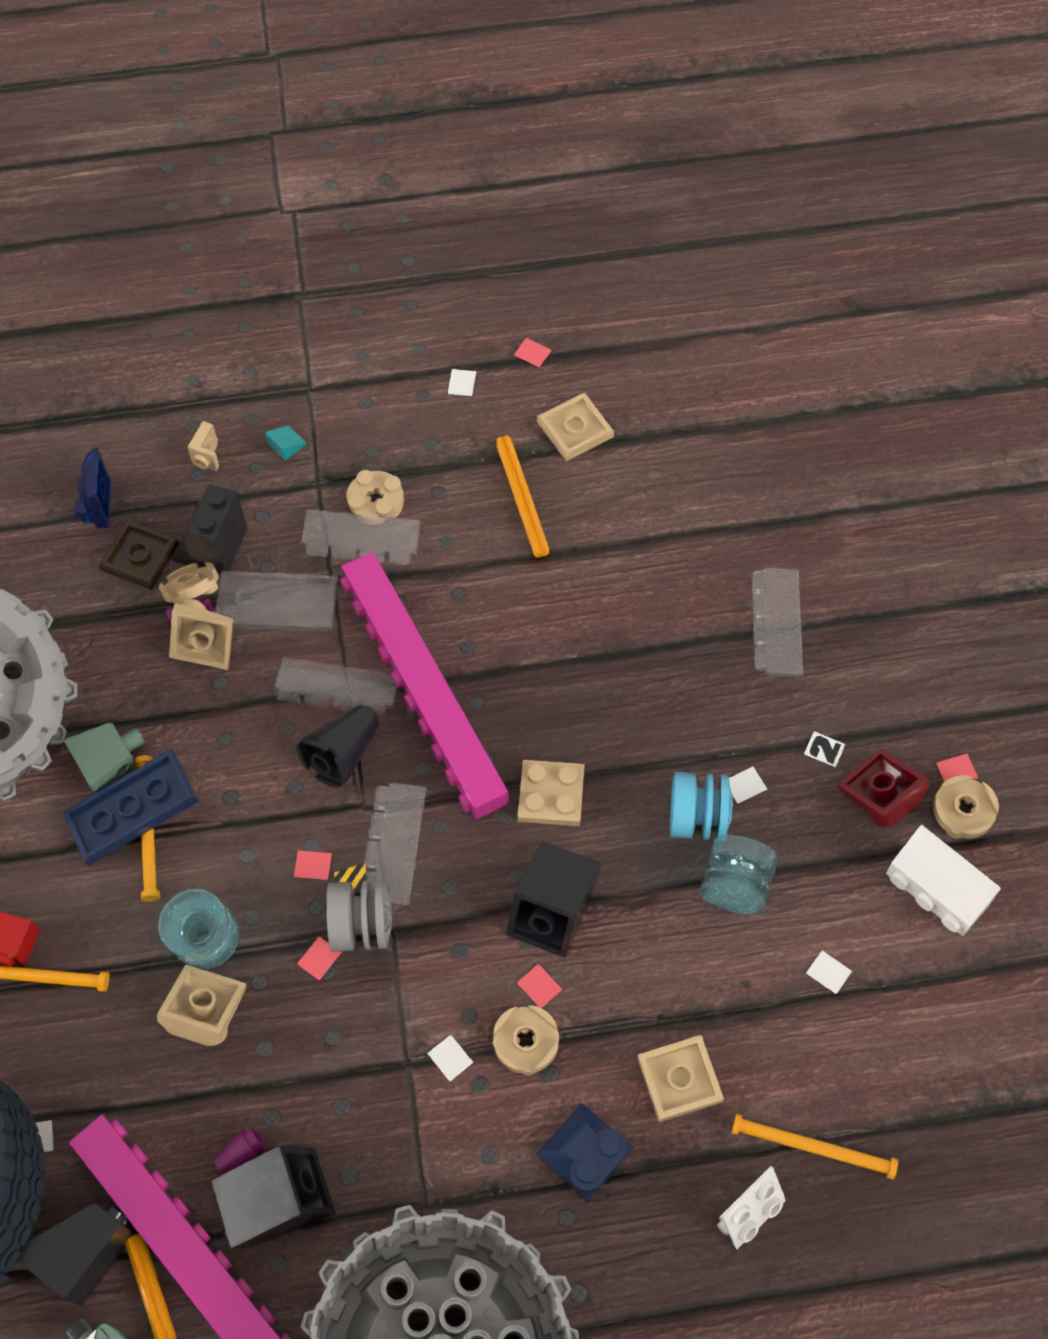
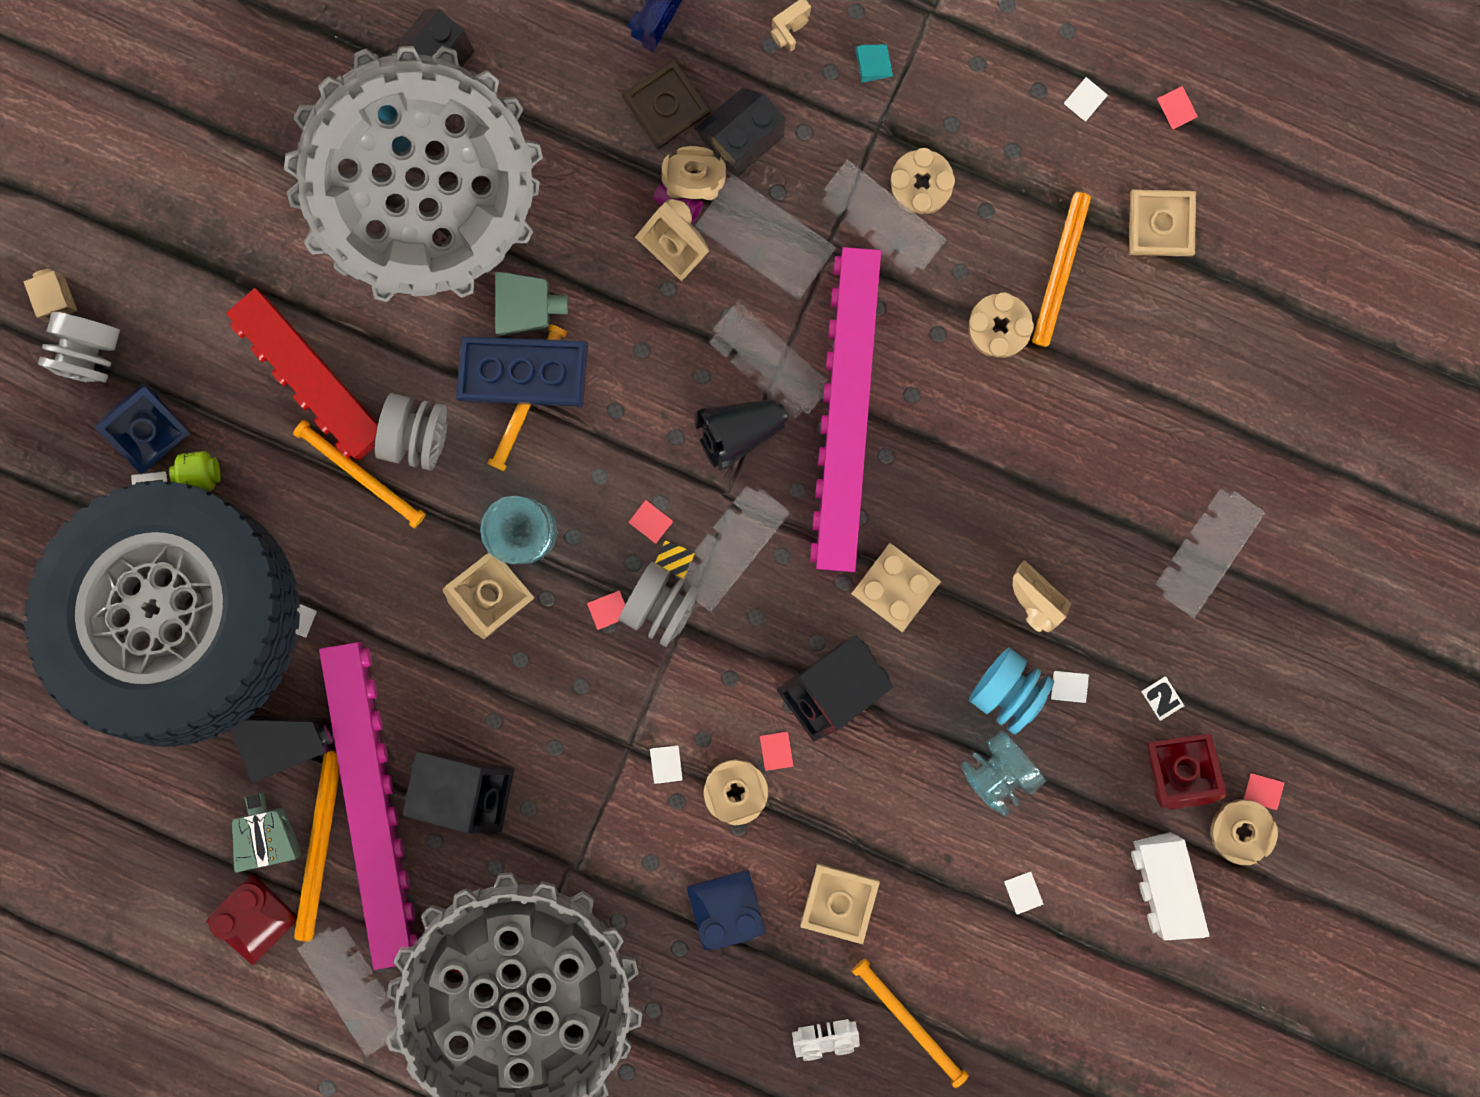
camera: 30 degrees right, 25 degrees up
(50, 907) = (403, 431): none -> light grey wheel
(240, 1150) = (454, 737): magenta cone -> none
(499, 543) = (1001, 307): none -> tan plate
(671, 724) = (1042, 601): none -> tan slope

